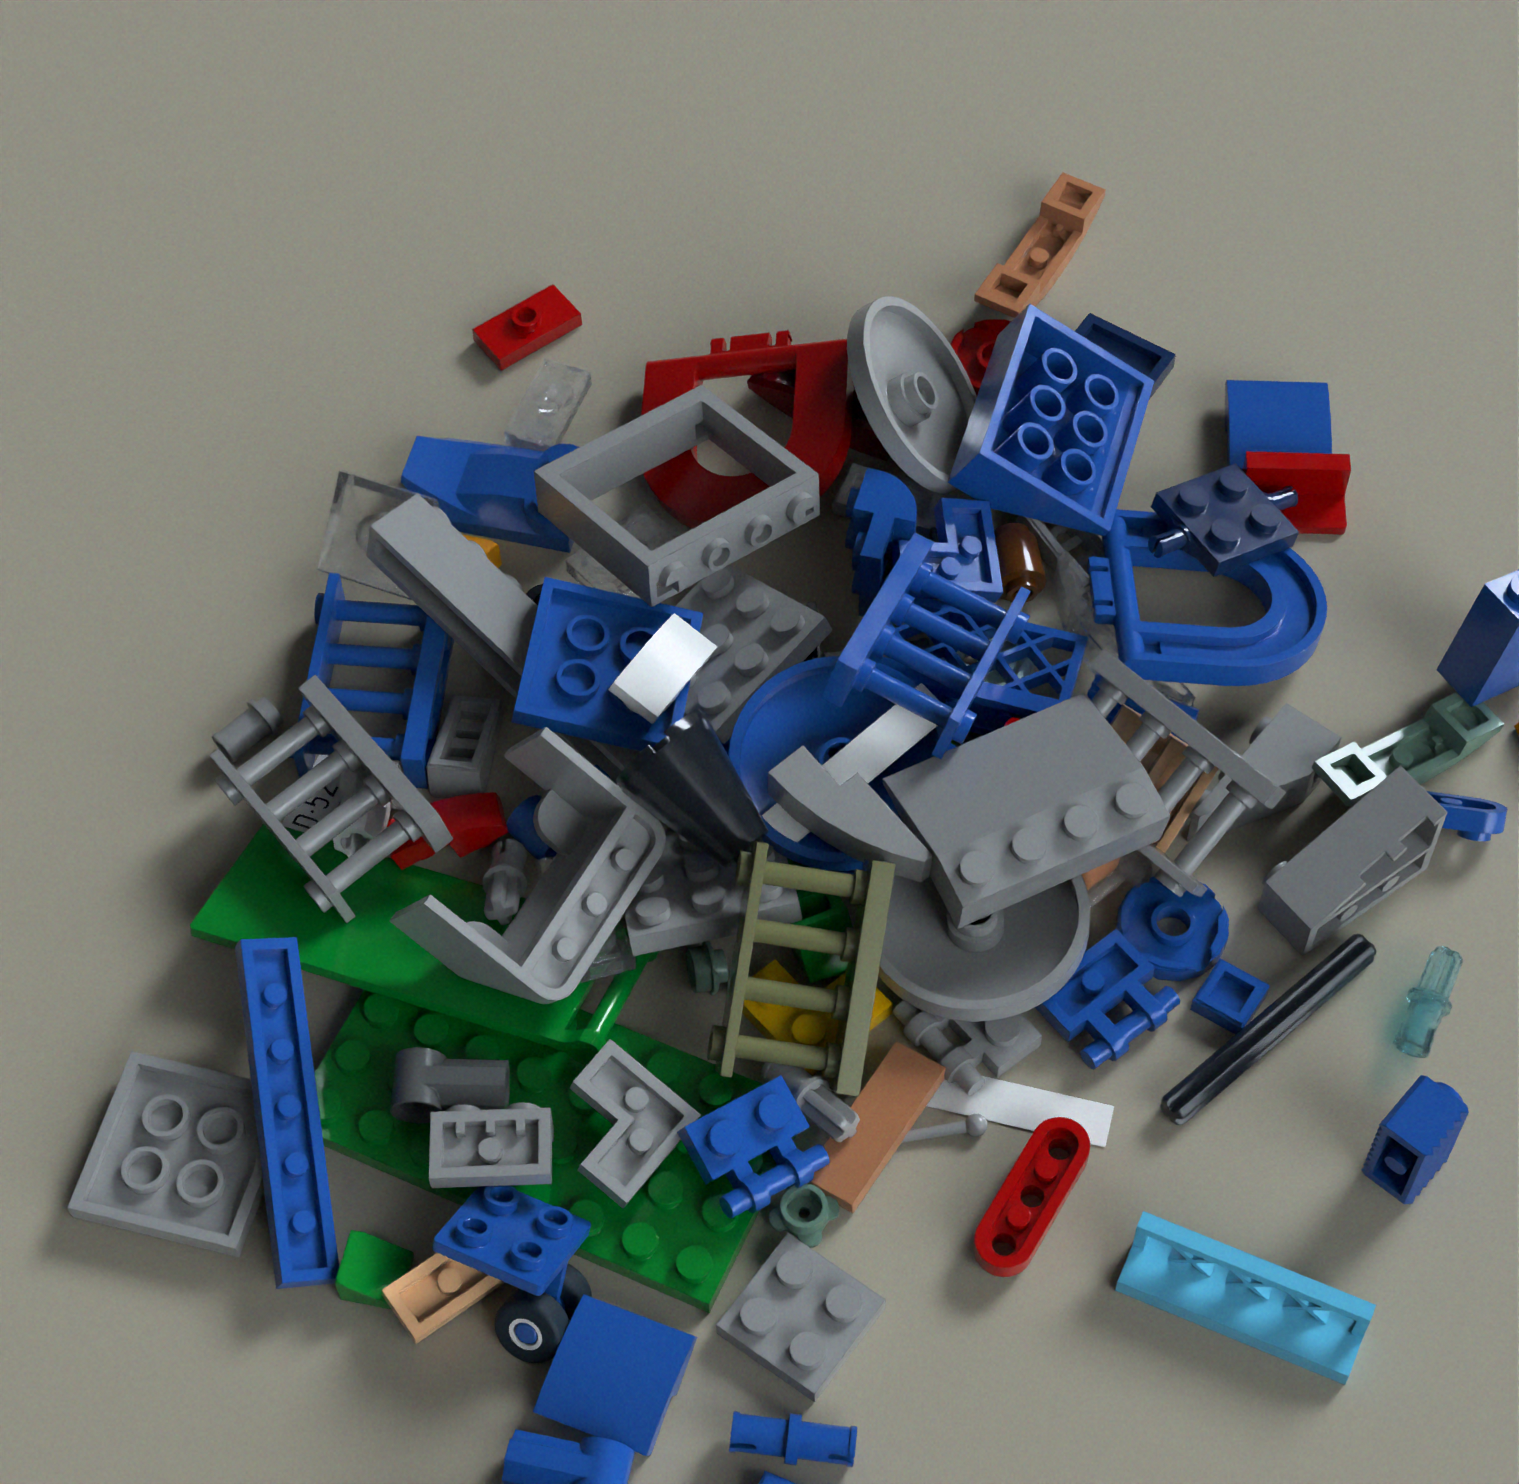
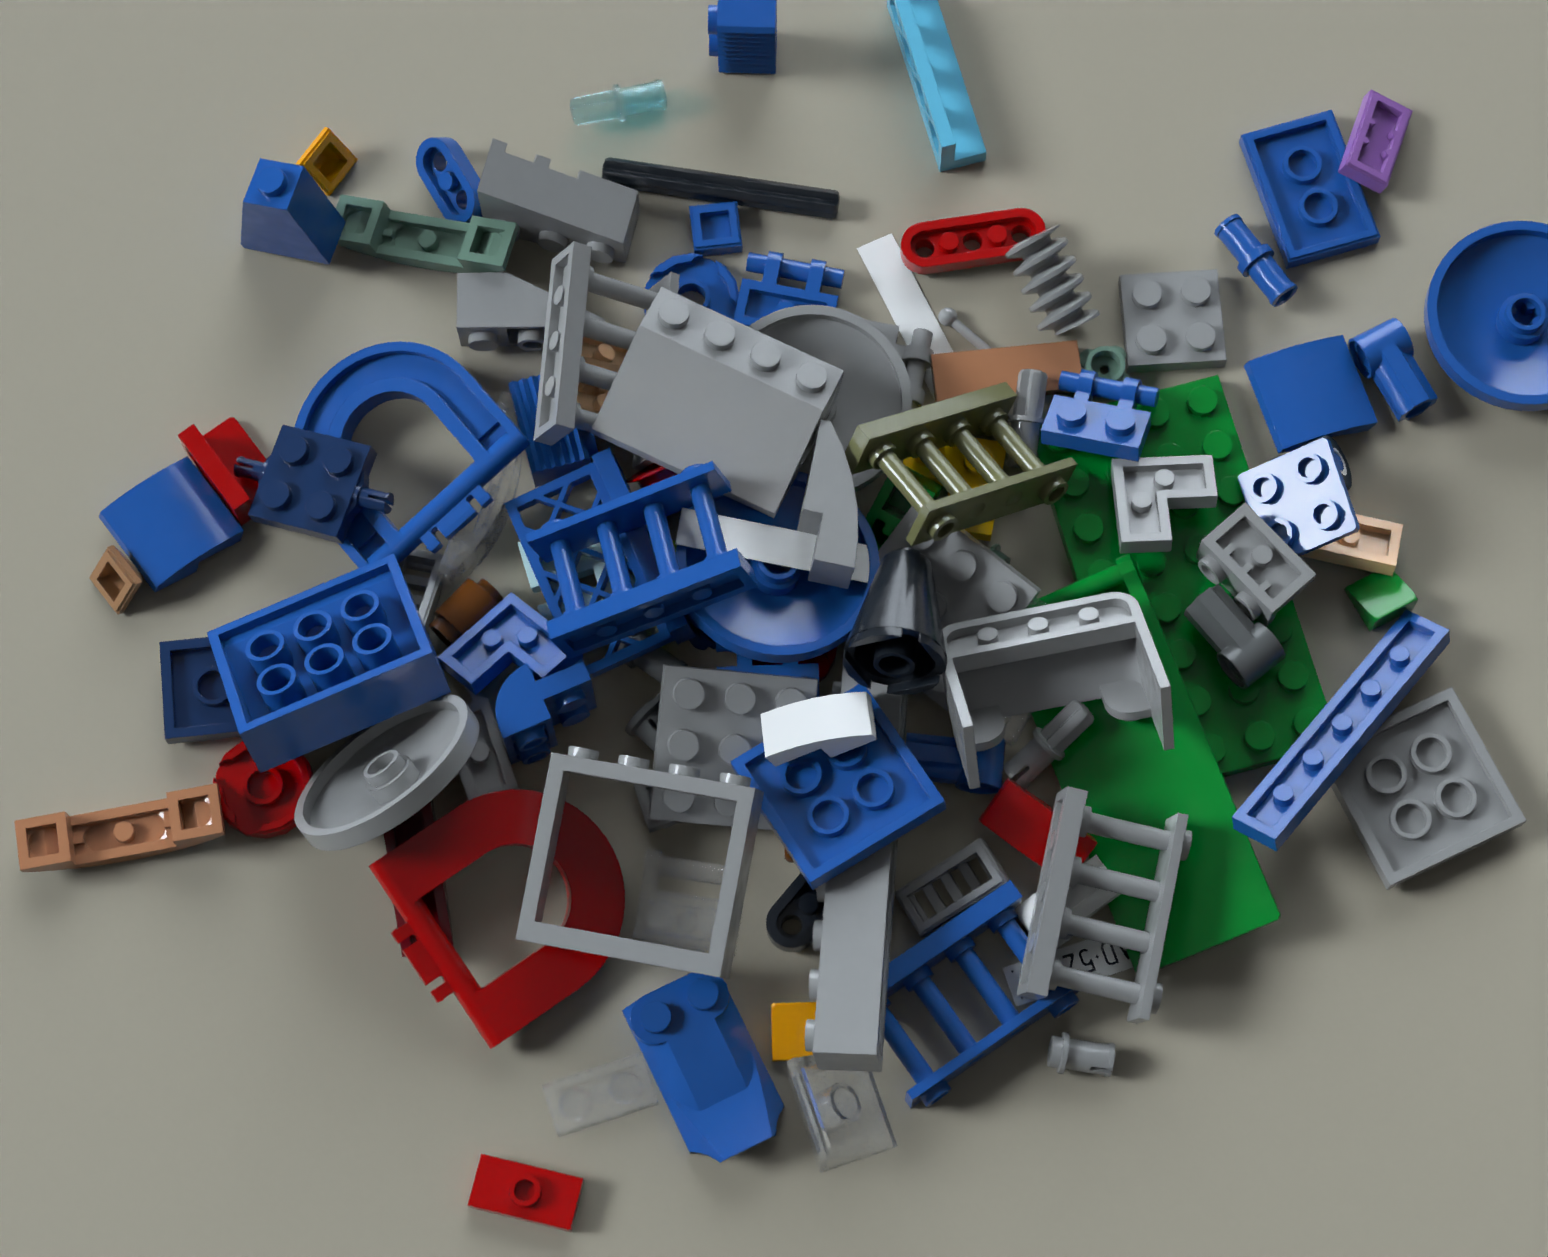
camera: 130 degrees left, 15 degrees up
(920, 1213) = (1052, 282): none -> light grey piece
(1258, 367) = (116, 579): none -> medium nougat slope

